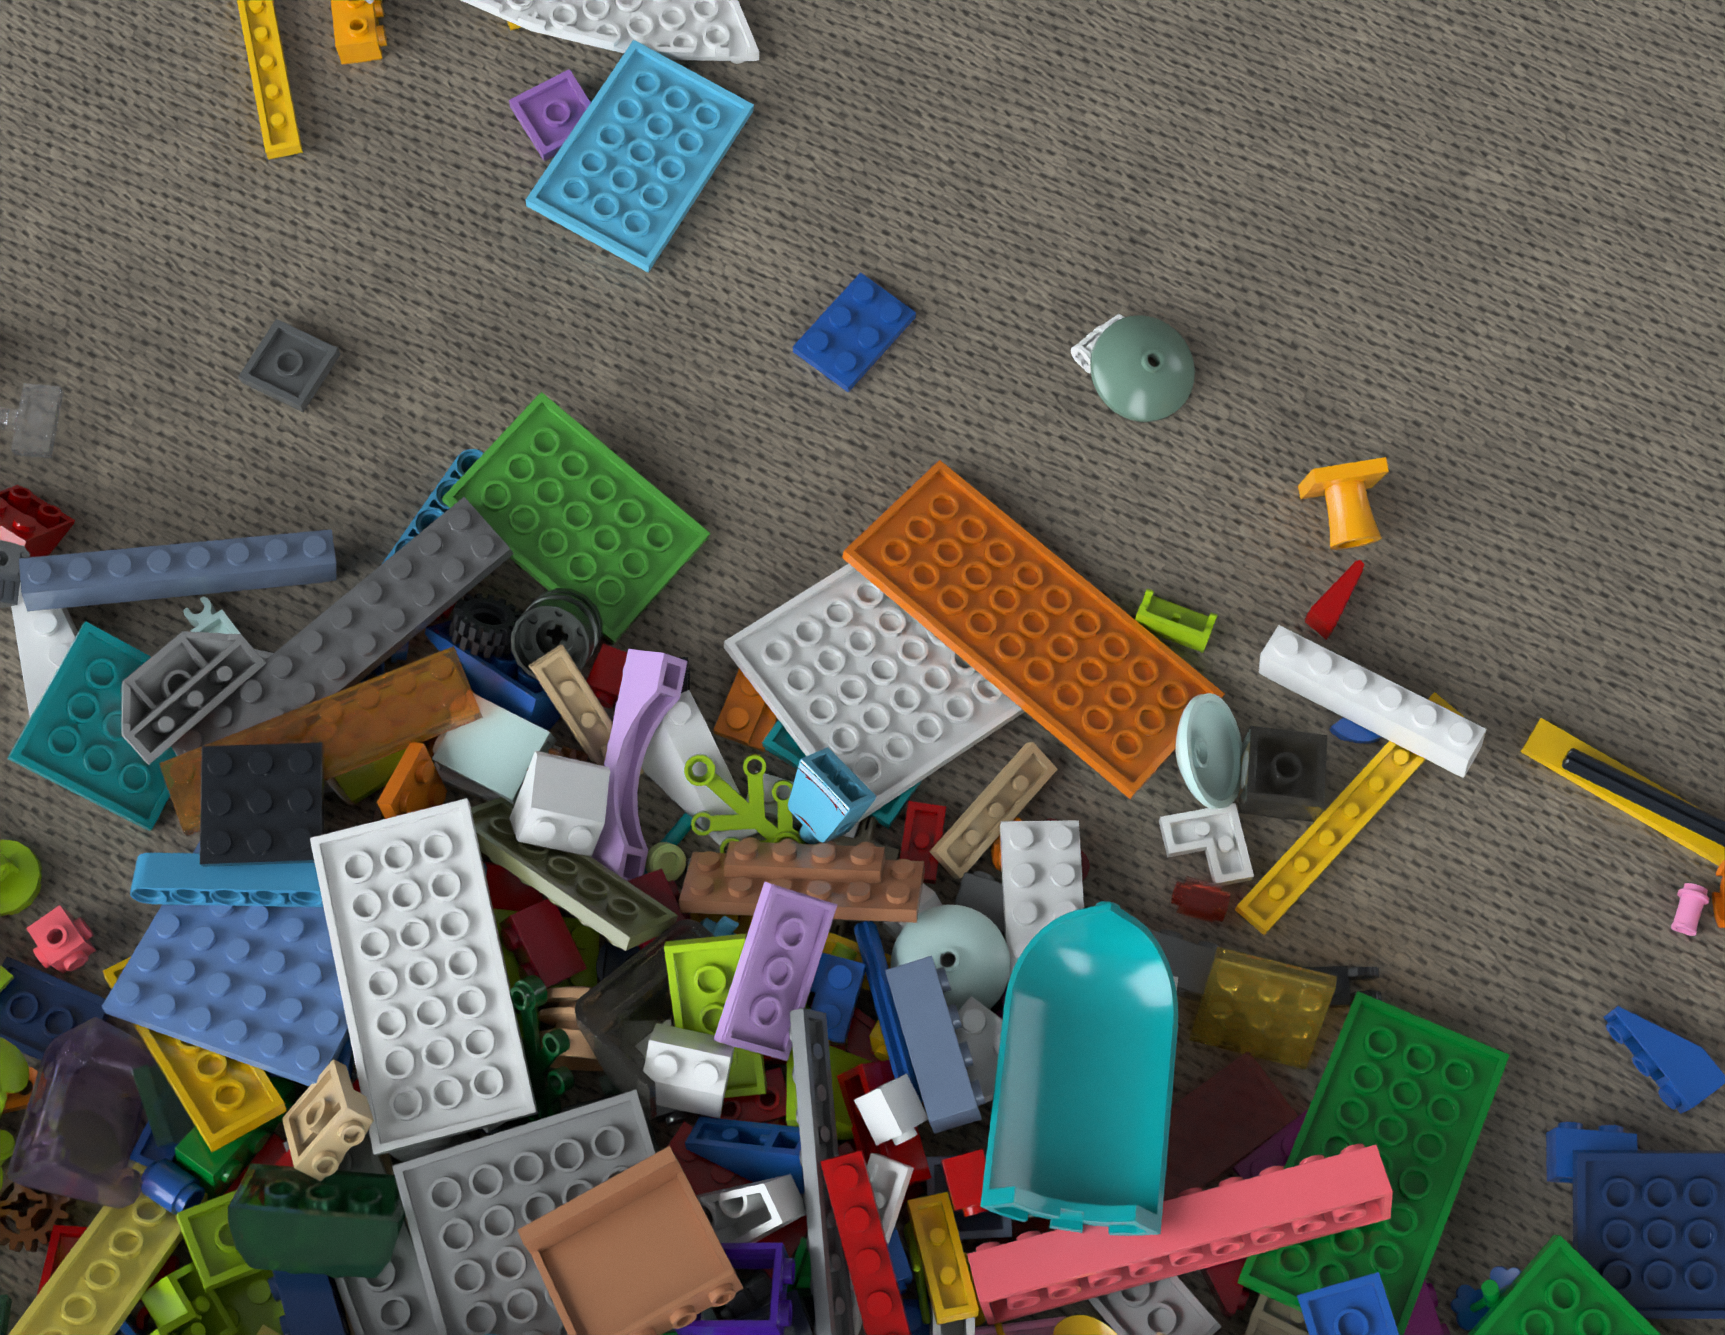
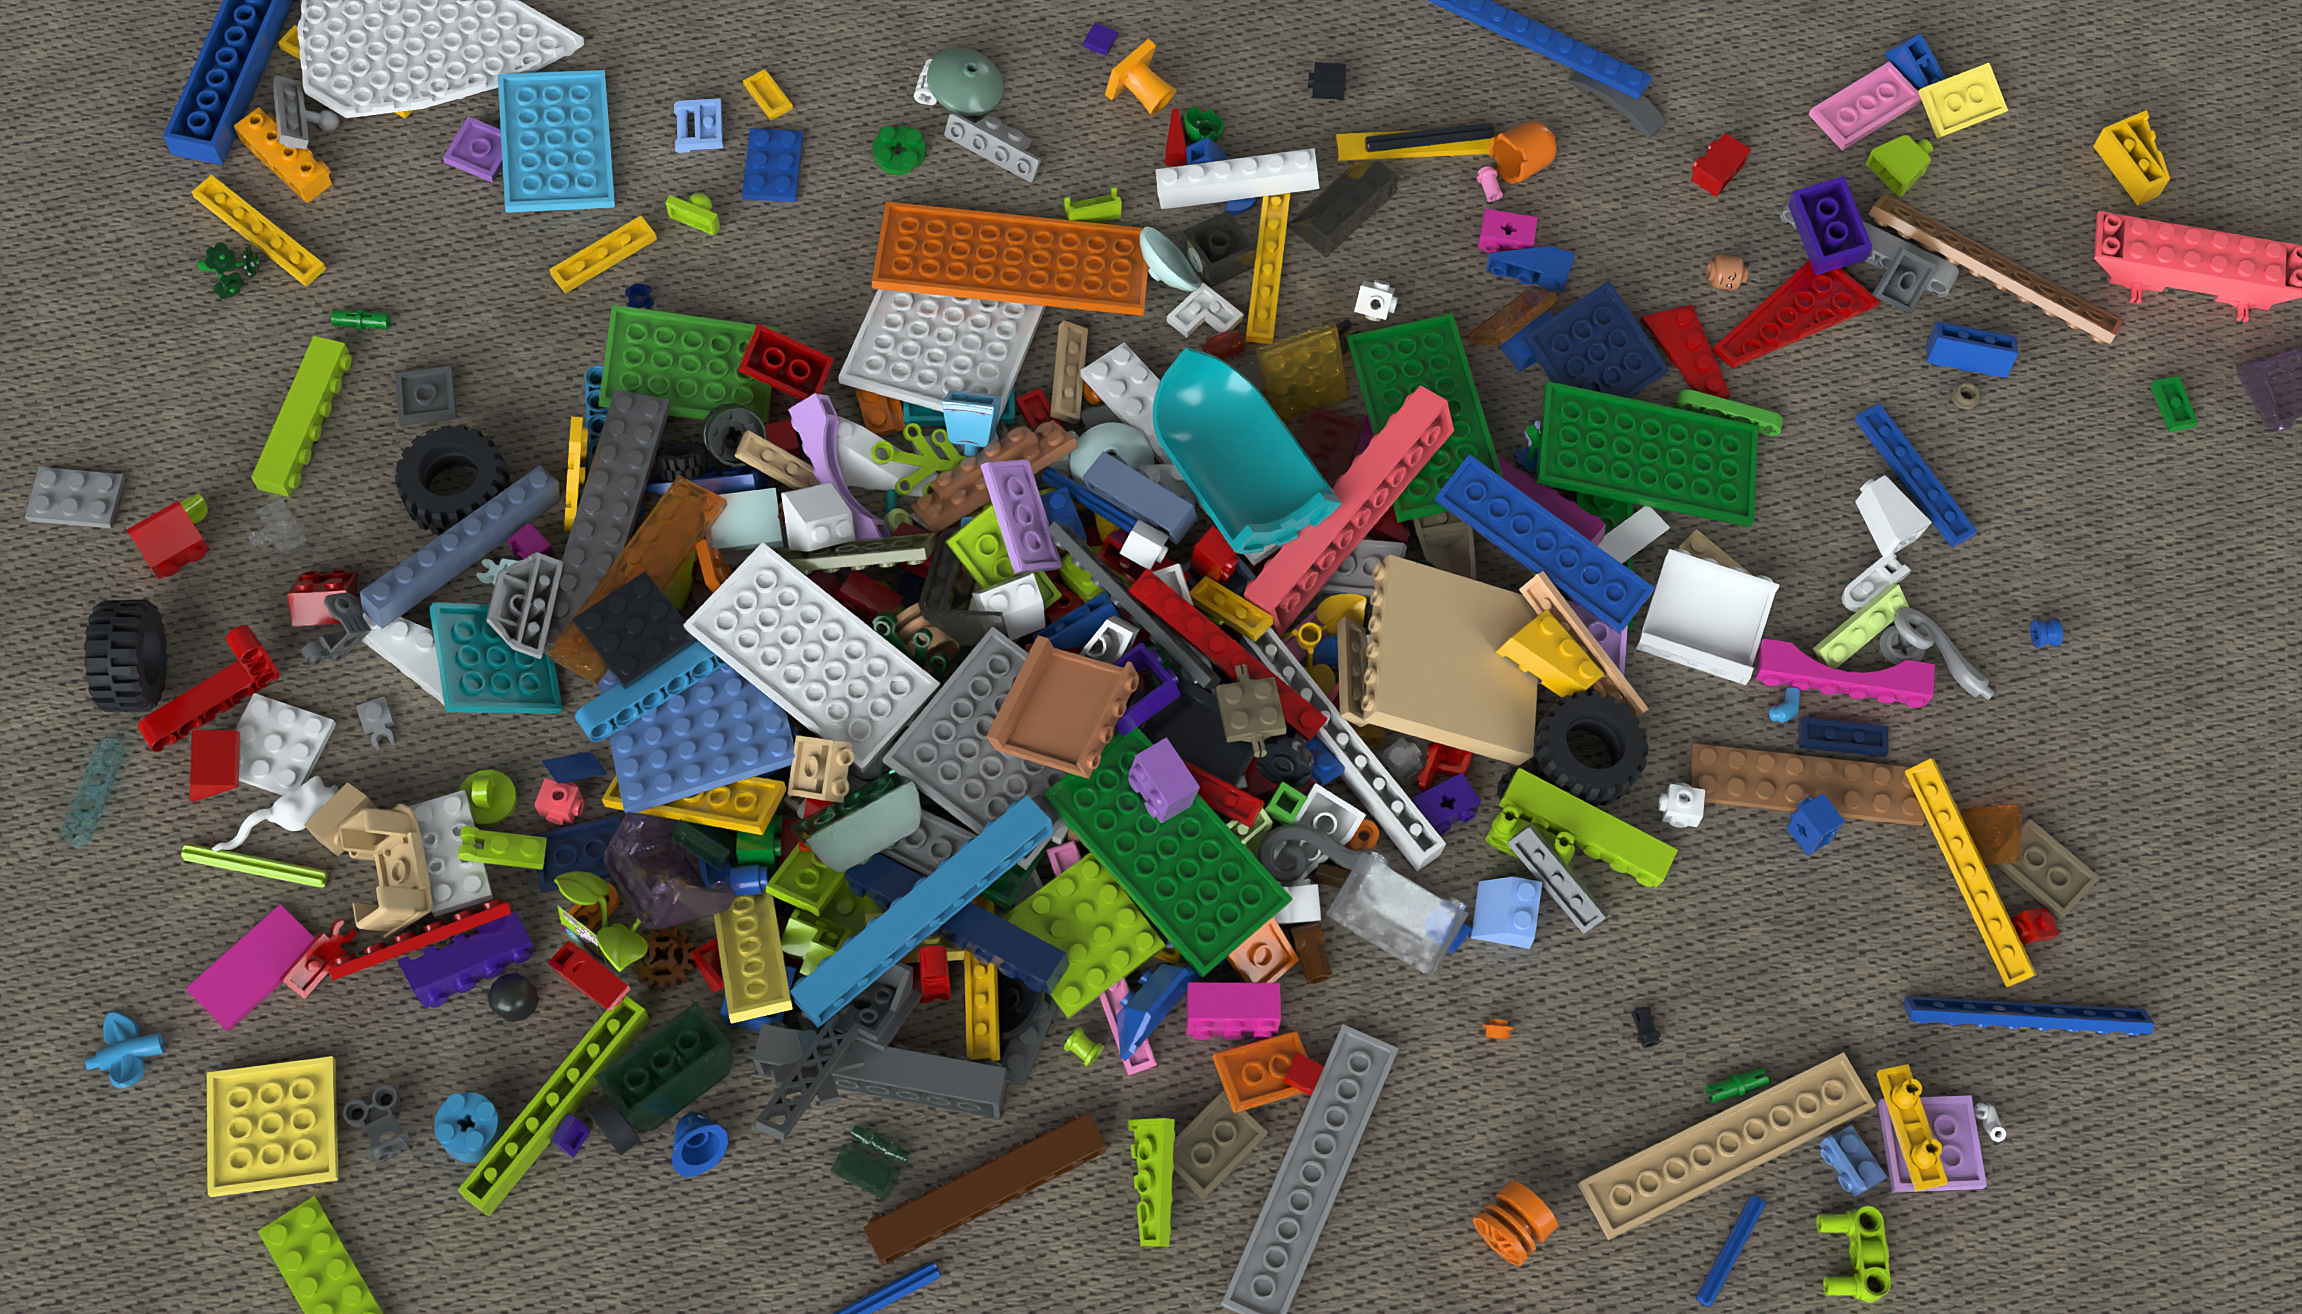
camera: 40 degrees left, 5 degrees down
(106, 910) = (574, 767): none -> blue sticker
(149, 306) = (302, 417): none -> lime brick
(197, 80) = (222, 260): none -> dark green plant
(219, 445) = (440, 451): none -> black tyre
(261, 618) = (529, 541): none -> magenta brick
(291, 233) = (360, 319): none -> green pin
(368, 549) = (576, 469): none -> yellow plate
(590, 387) = (639, 290): none -> clear blue plate
(592, 321) = (603, 254): none -> yellow plate
(672, 590) = (784, 363): none -> red slope
(725, 334) = (694, 212): none -> lime tile
(817, 237) = (707, 125): none -> light blue plate
(911, 243) = (767, 94): none -> yellow tile
(1009, 423) = (897, 136): none -> green plate
(1123, 467) = (995, 143): none -> light grey bracket
(1342, 414) = (1100, 39): none -> dark purple tile
(1354, 643) = (1204, 152): none -> blue brick
(1381, 590) = (1197, 121): none -> green hair
(1429, 968) = (1369, 306): none -> white brick
(1482, 816) = (1345, 205): none -> clear smoke slope
(1580, 642) = (1328, 80): none -> black brick
(1584, 1110) = (1512, 318): none -> clear orange tile
(1682, 997) = (1506, 231): none -> dark pink brick

